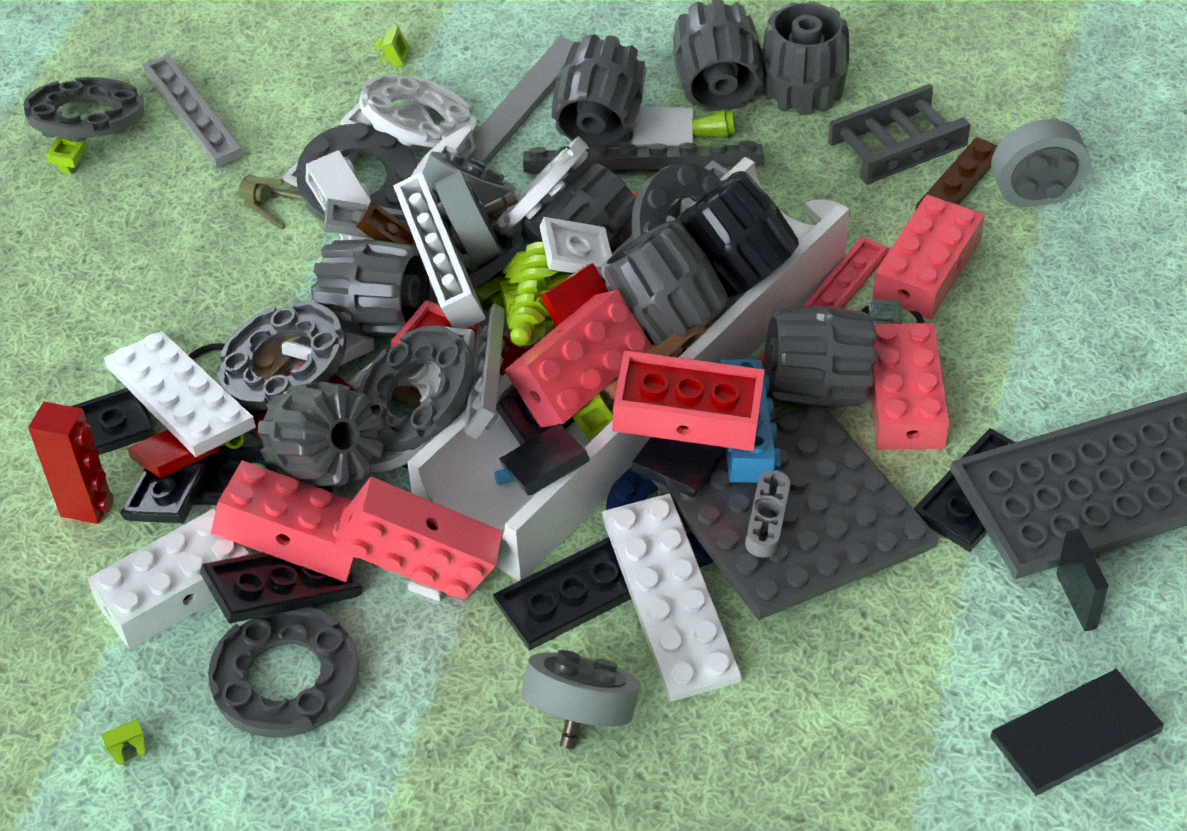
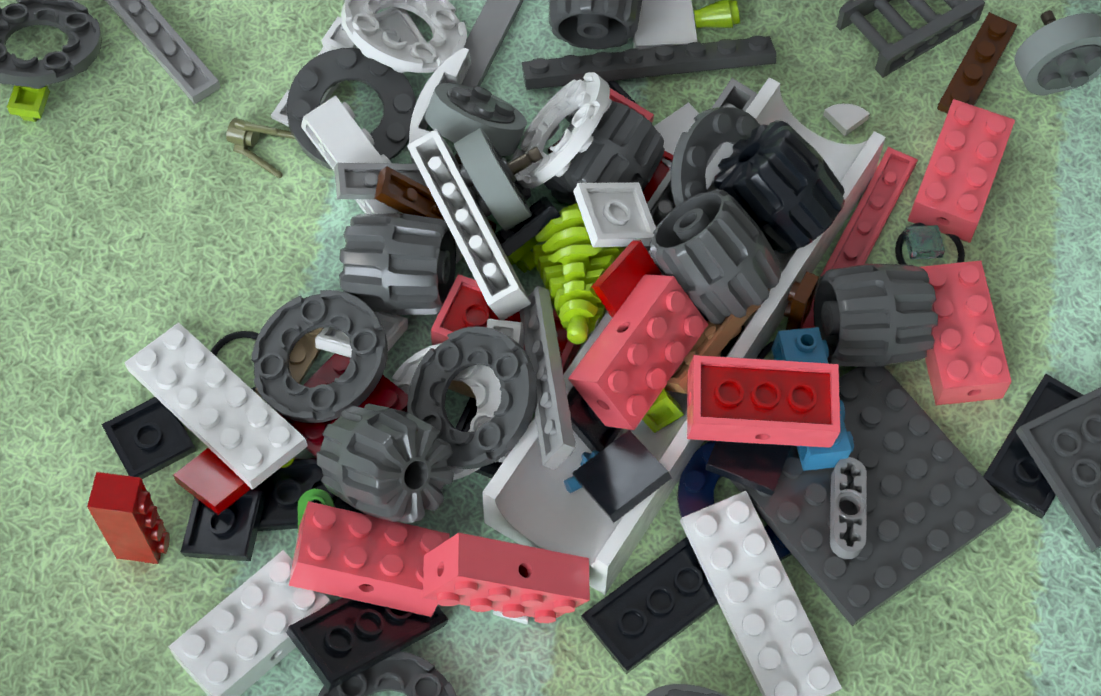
camera: 10 degrees left, 15 degrees up
(751, 336) = (800, 301): none -> reddish brown plate

